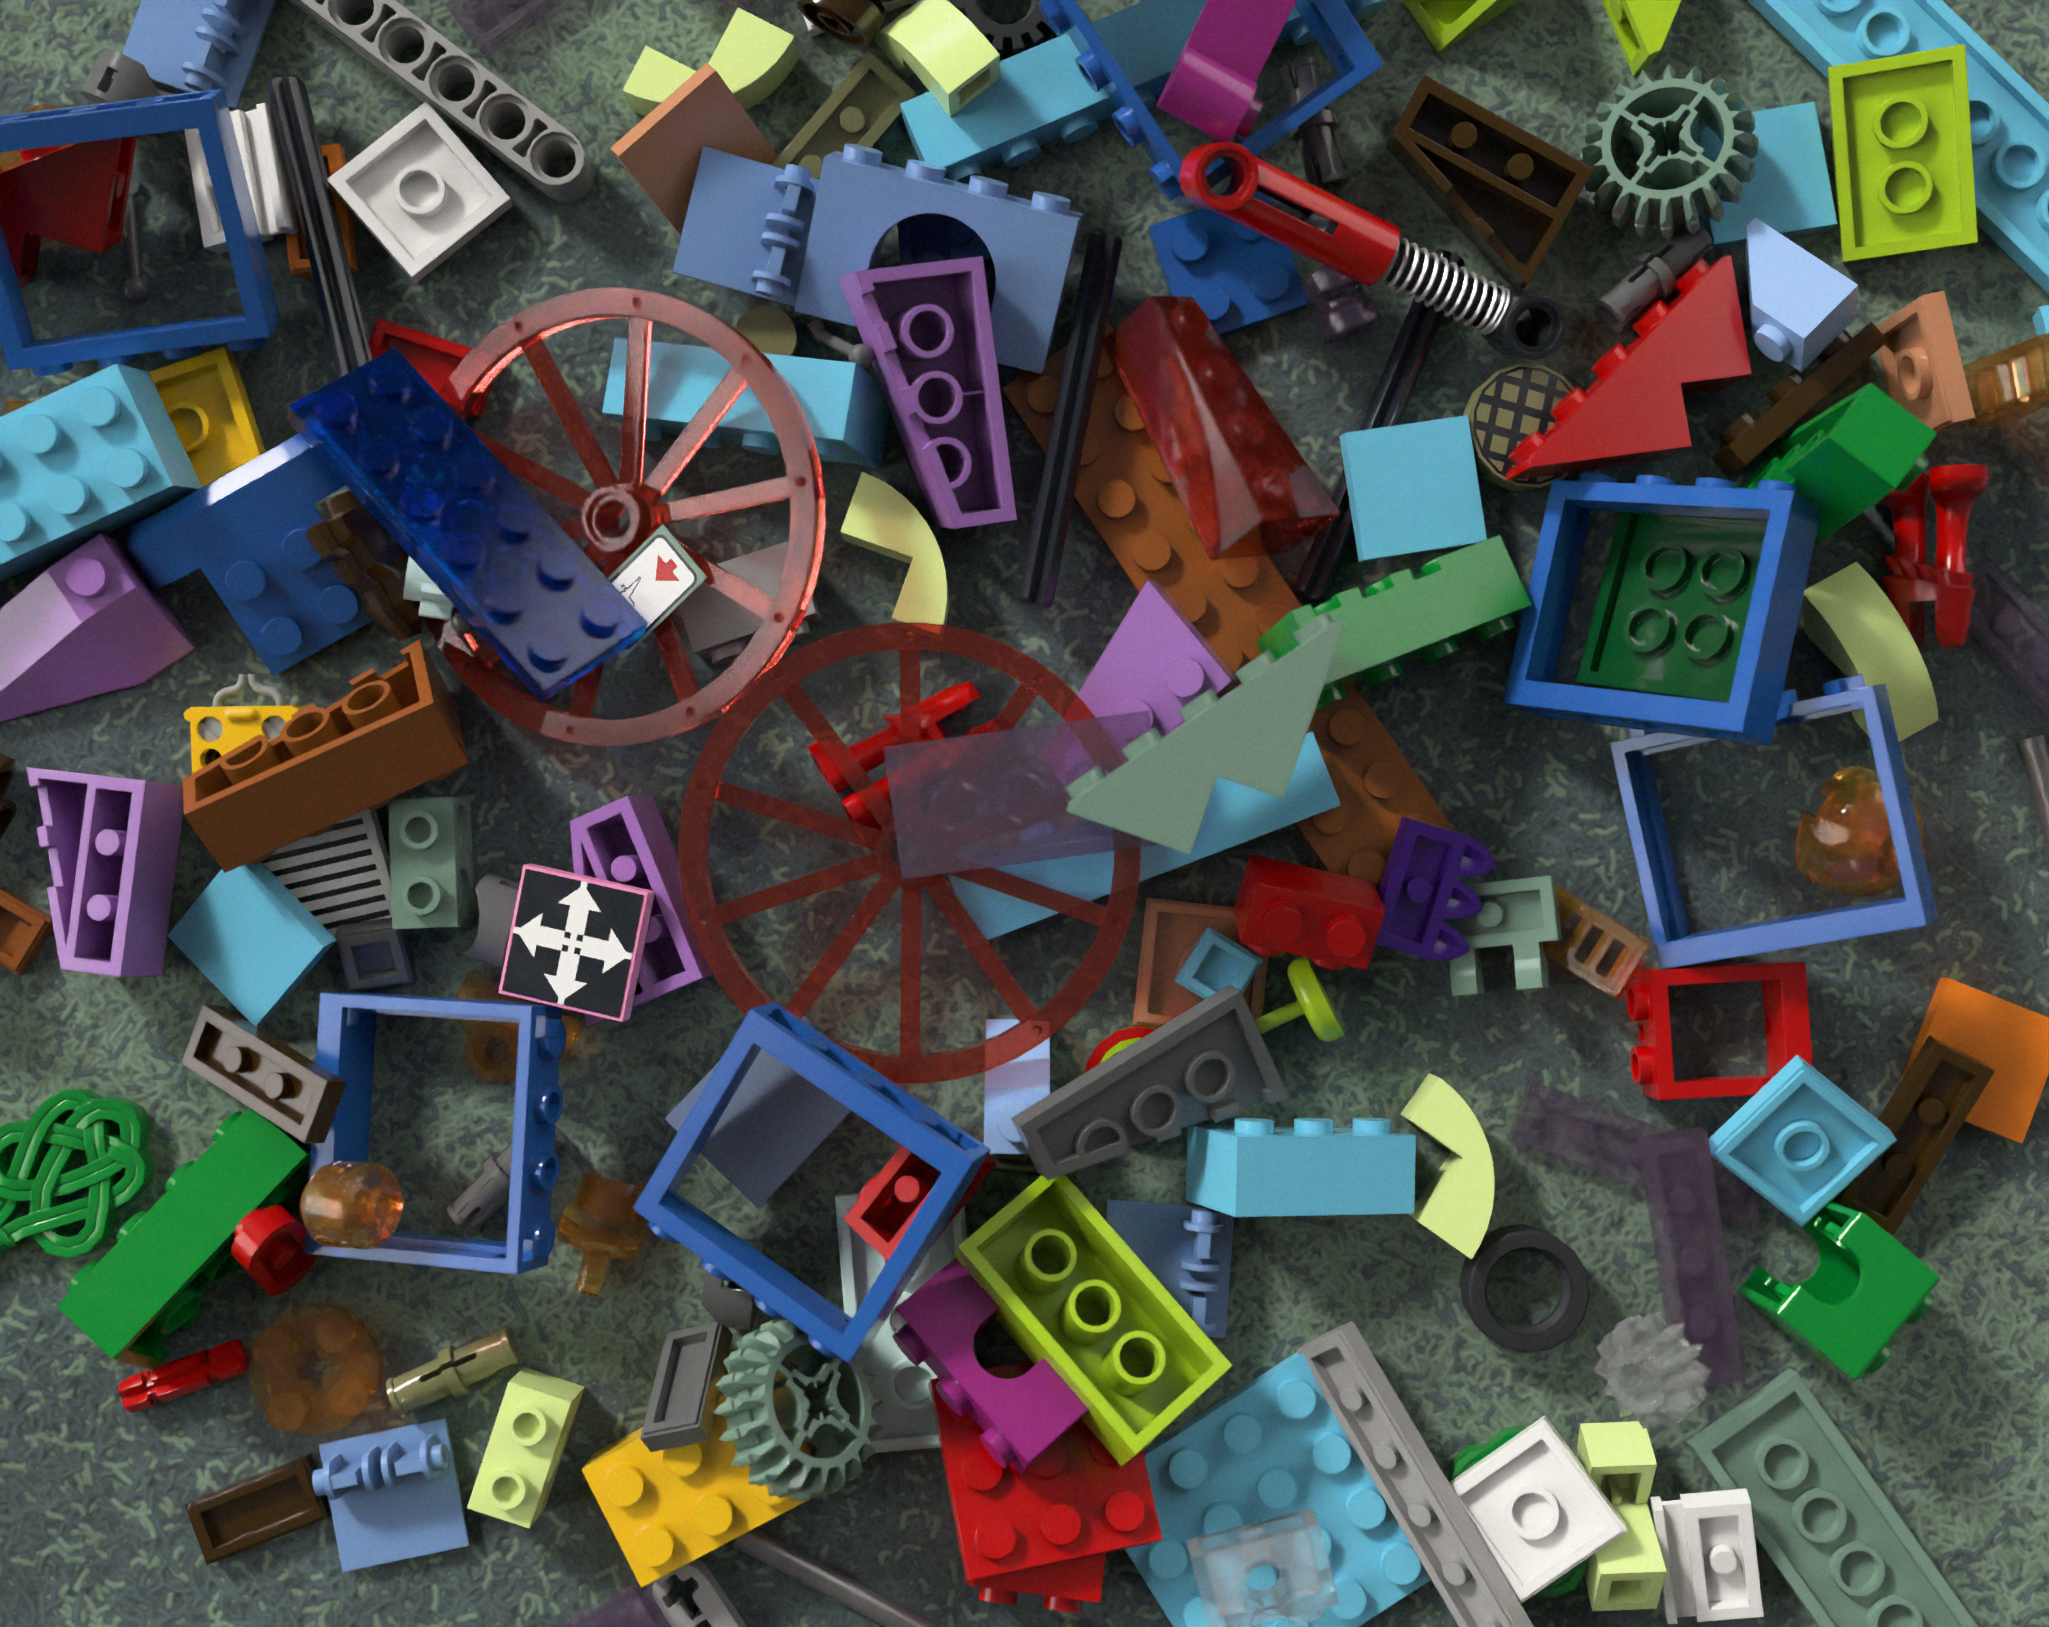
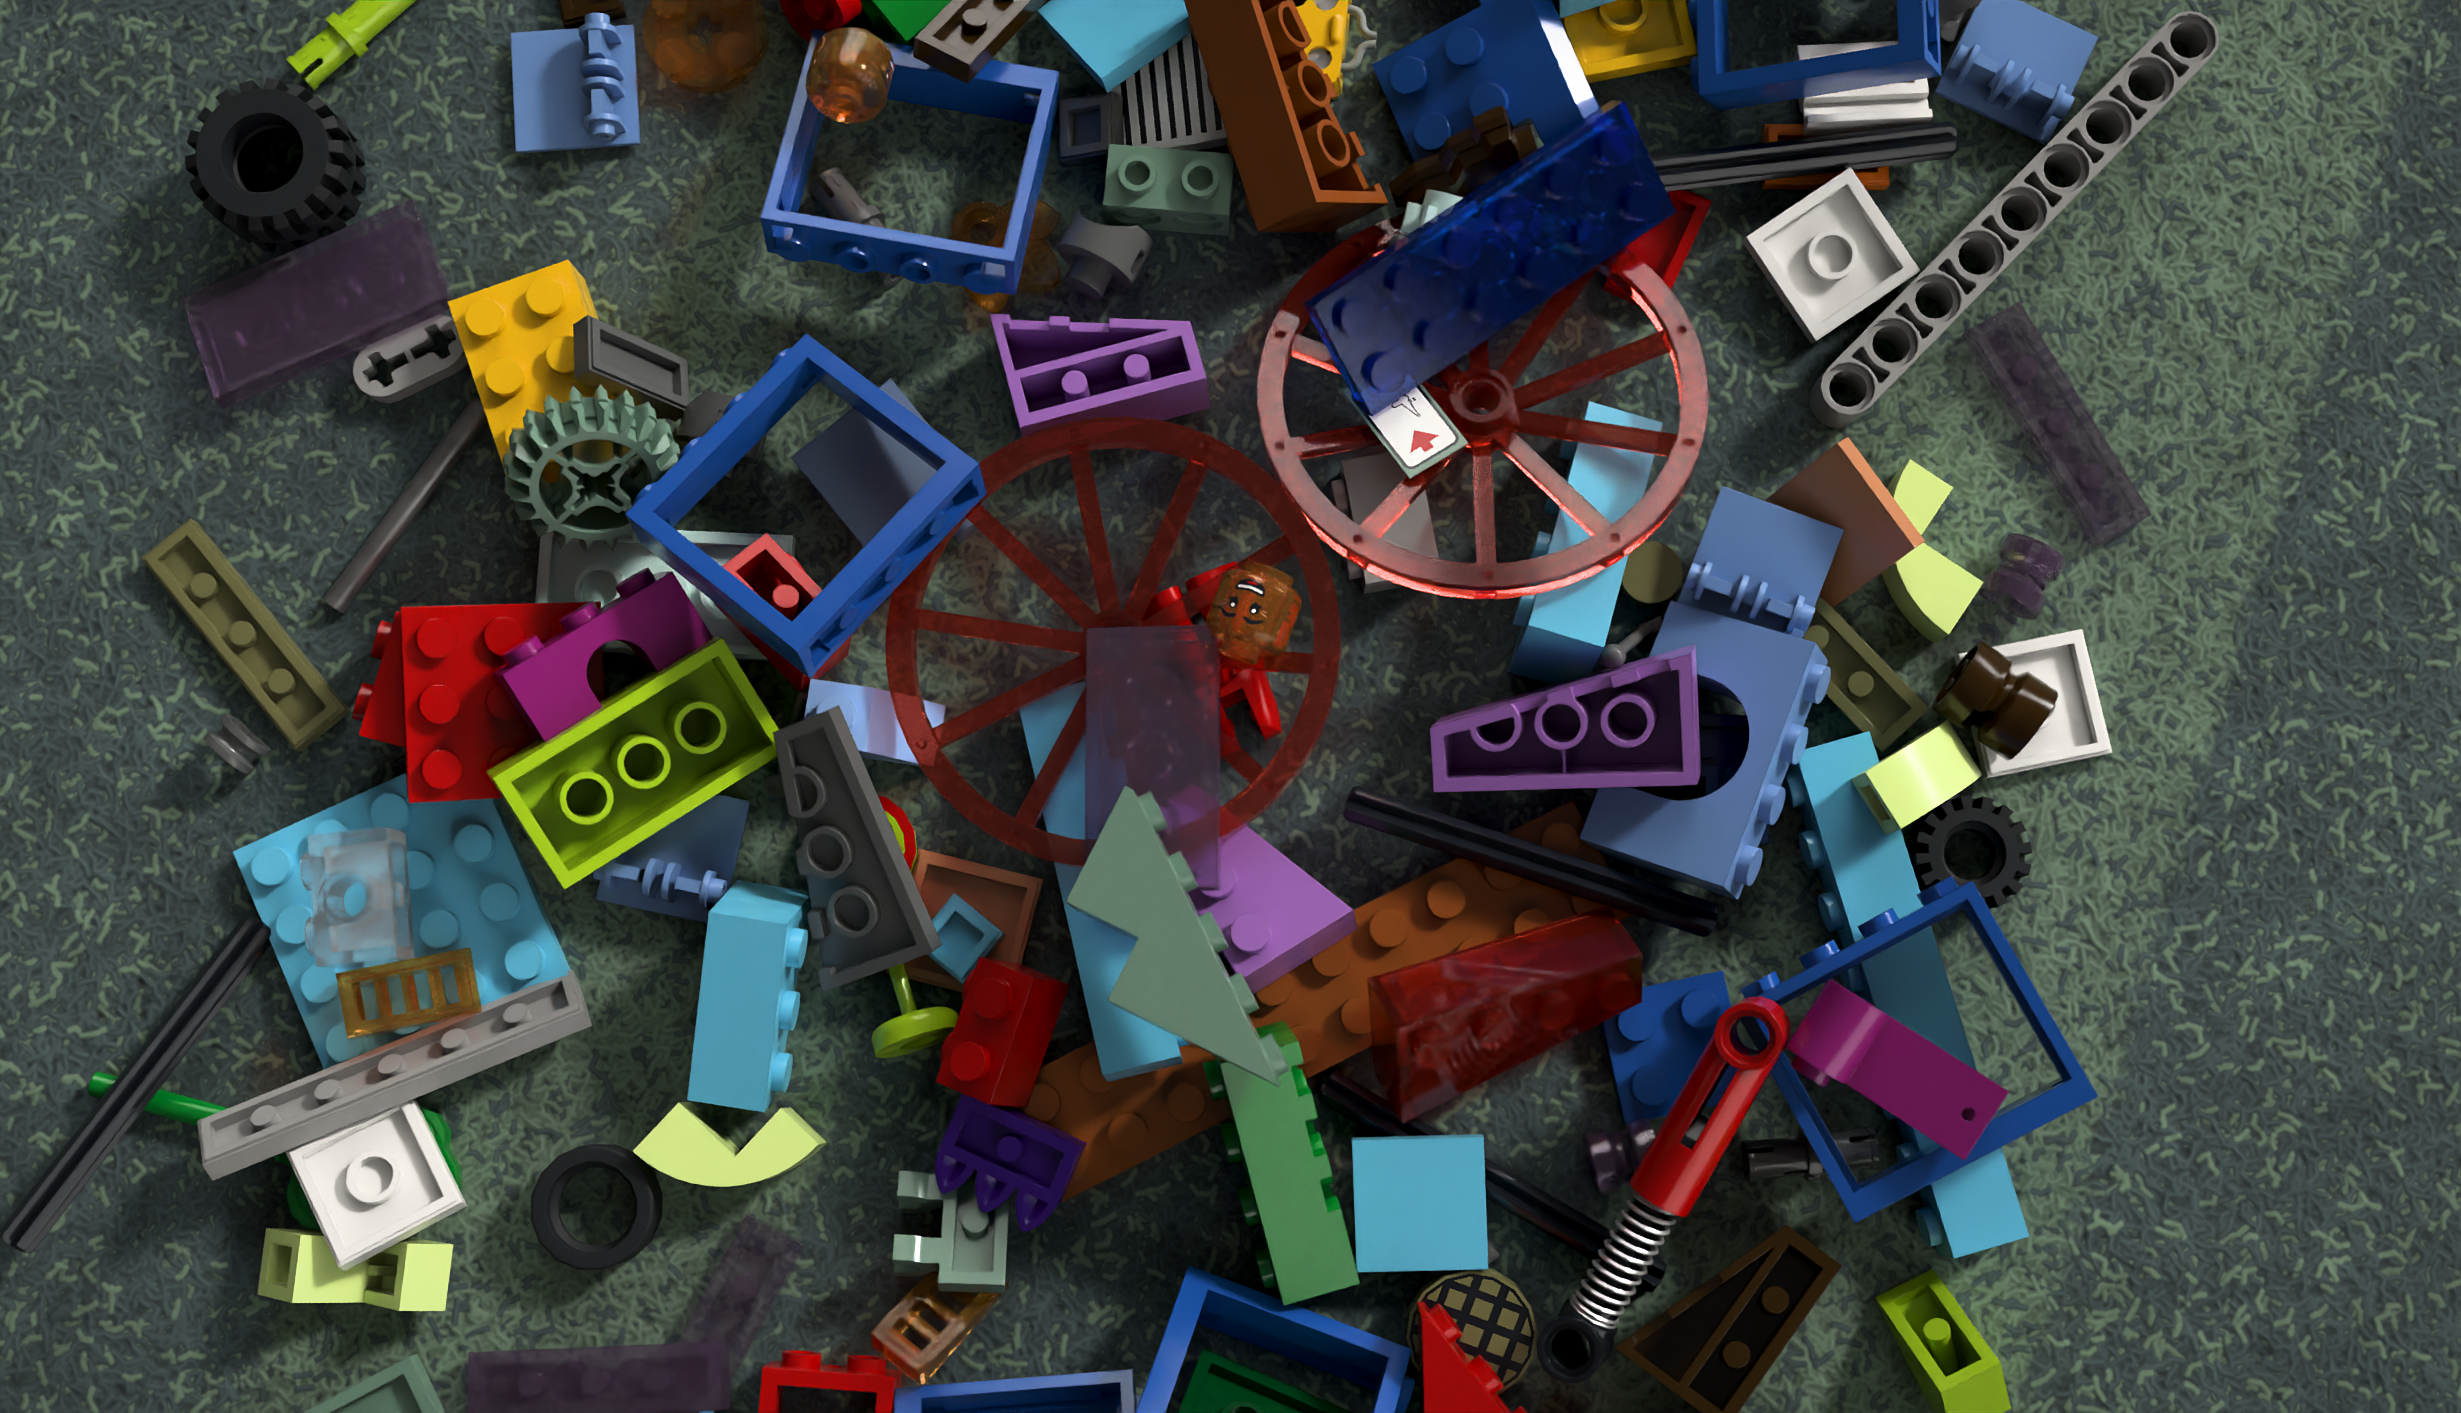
camera: 105 degrees right, 5 degrees down
(454, 1371) = (681, 156): olive pin -> none
(525, 1447) = (599, 213): yellowish green brick -> none
(576, 942) = (1071, 313): tile -> none
(602, 1226) = (796, 308): clear orange piece -> none
(867, 711) = (1254, 612): none -> clear orange head
(892, 526) = (1445, 674): yellowish green brick -> none
(1367, 1561) = (352, 1002): none -> clear orange slope
(1652, 1370) = (493, 1322): clear gear -> none
(1708, 1556) = (300, 1354): white plate -> none

